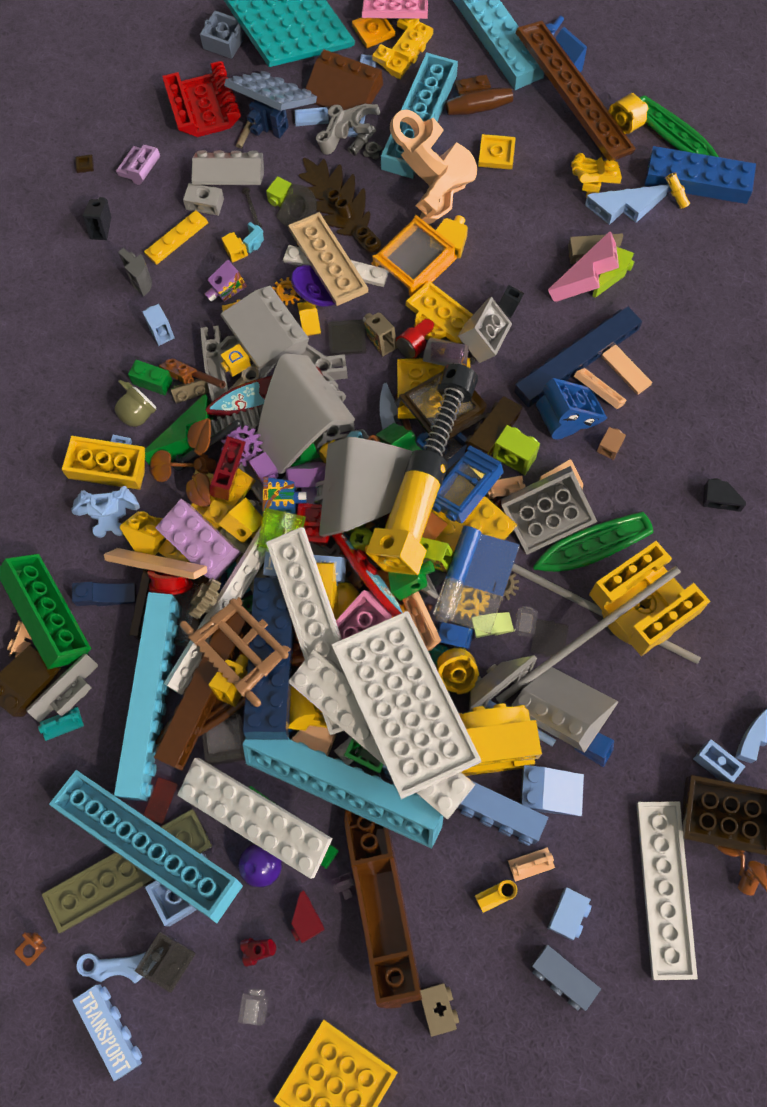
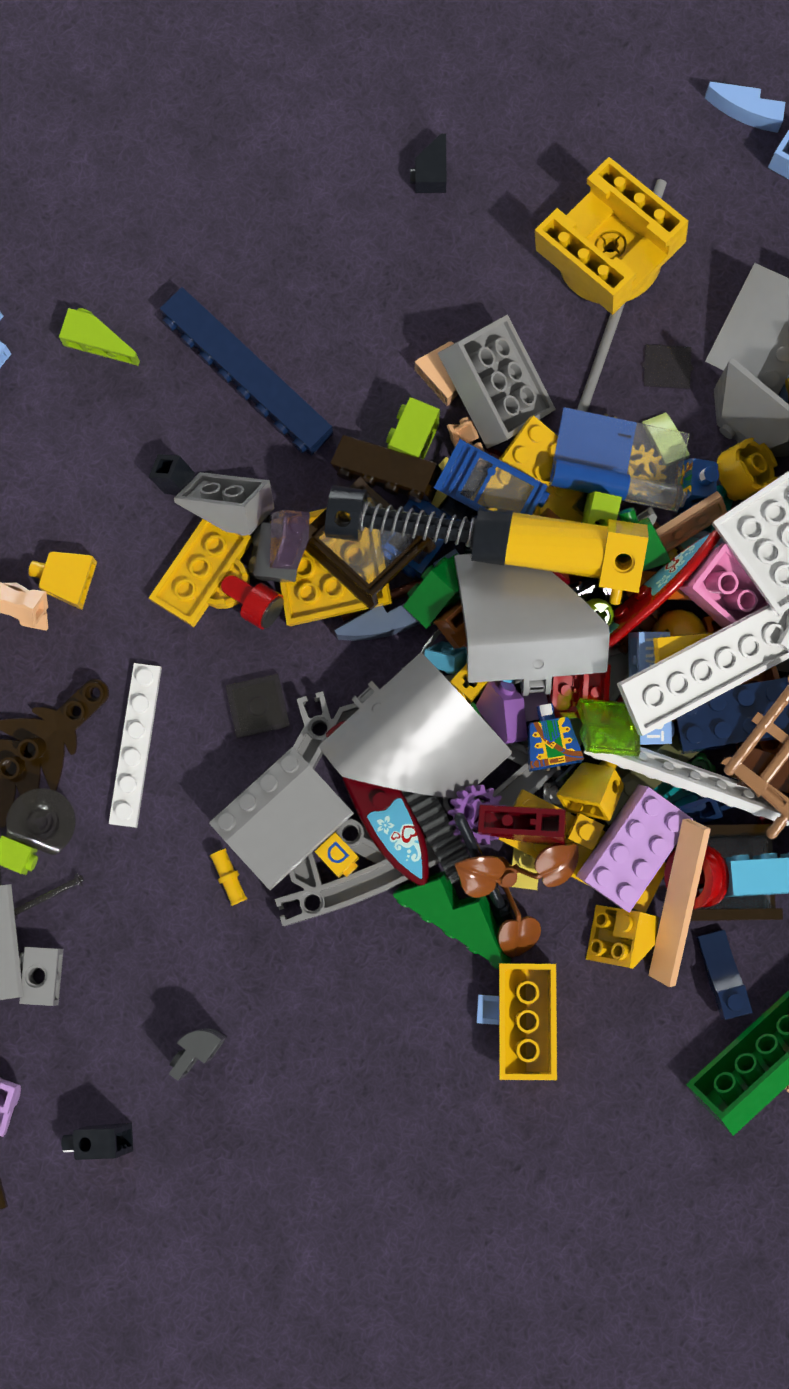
camera: 100 degrees left, 10 degrees up
(106, 509) = (596, 1002): light blue piece -> none
(134, 406) = (429, 996): olive piece -> none
(150, 377) = (373, 987): green brick -> none
(158, 324) = (285, 993): light blue brick -> none
(176, 237) = (114, 1008): yellow plate -> none
(179, 370) = (356, 945): dark orange hinge -> none
(189, 391) = (388, 934): dark tan hinge -> none
(204, 598) = (725, 814): dark tan gear -> none
(207, 378) = (363, 910): copper piece -> none
(225, 282) = (188, 897): medium lavender torso -> none
(234, 247) = (124, 908): yellow brick -> none
(254, 239) = (110, 878): medium azure bracket -> none
(263, 467) = (507, 776): medium lavender brick -> none
(280, 290) = (189, 800): light orange gear -> none
(309, 318) = (232, 768): yellow slope -> none
(310, 287) = (175, 755): dark purple dish -> none
(328, 259) = (133, 753): tan plate -> none
(379, 326) = (258, 651): dark tan torso -> none
(416, 255) = (107, 626): piece -> none
(525, 622) = (655, 396): clear brick -> none
(568, 408) = (339, 370): blue brick -> none
(581, 245) = (63, 378): dark tan slope -> none
(584, 274) = (116, 373): bright pink slope -> none
(588, 634) = (650, 283): light grey piece -> none
(595, 543) = (534, 324): green piece -> none
(600, 388) = (292, 336): light nougat tile -> none
(611, 443) = (375, 313): medium nougat brick -> none
(626, 369) = (255, 305): light nougat tile -> none

